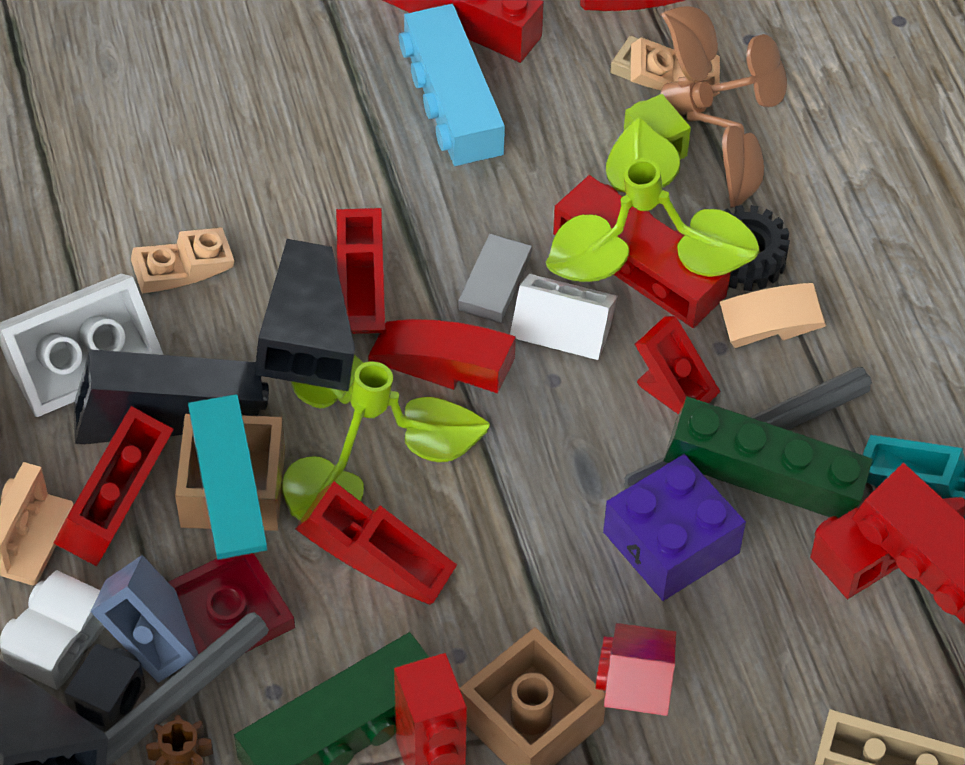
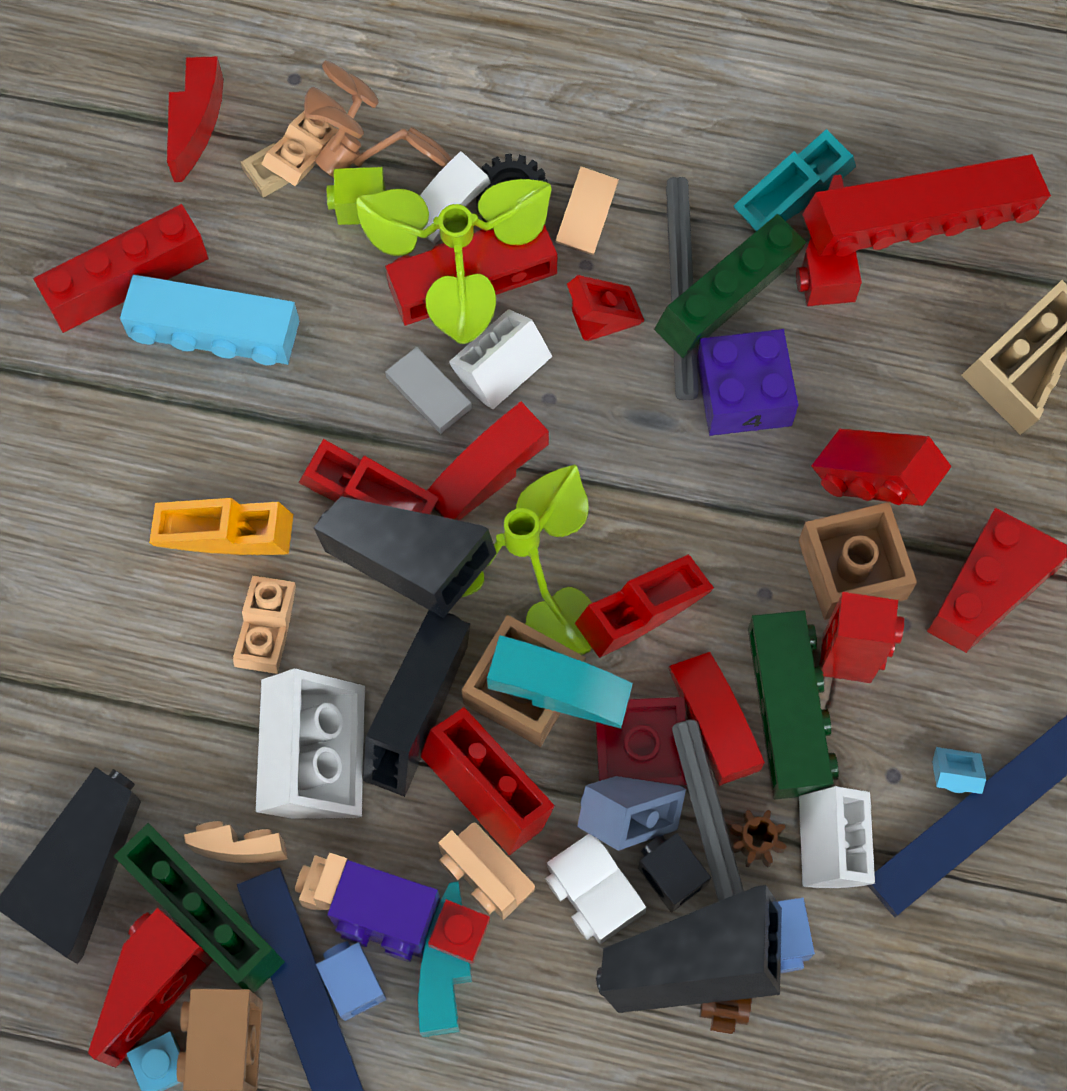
camera: 60 degrees left, 15 degrees up
(257, 187) = (222, 527): none -> light orange slope
(286, 659) = (722, 724): none -> red slope
(705, 191) = (455, 184): none -> white slope

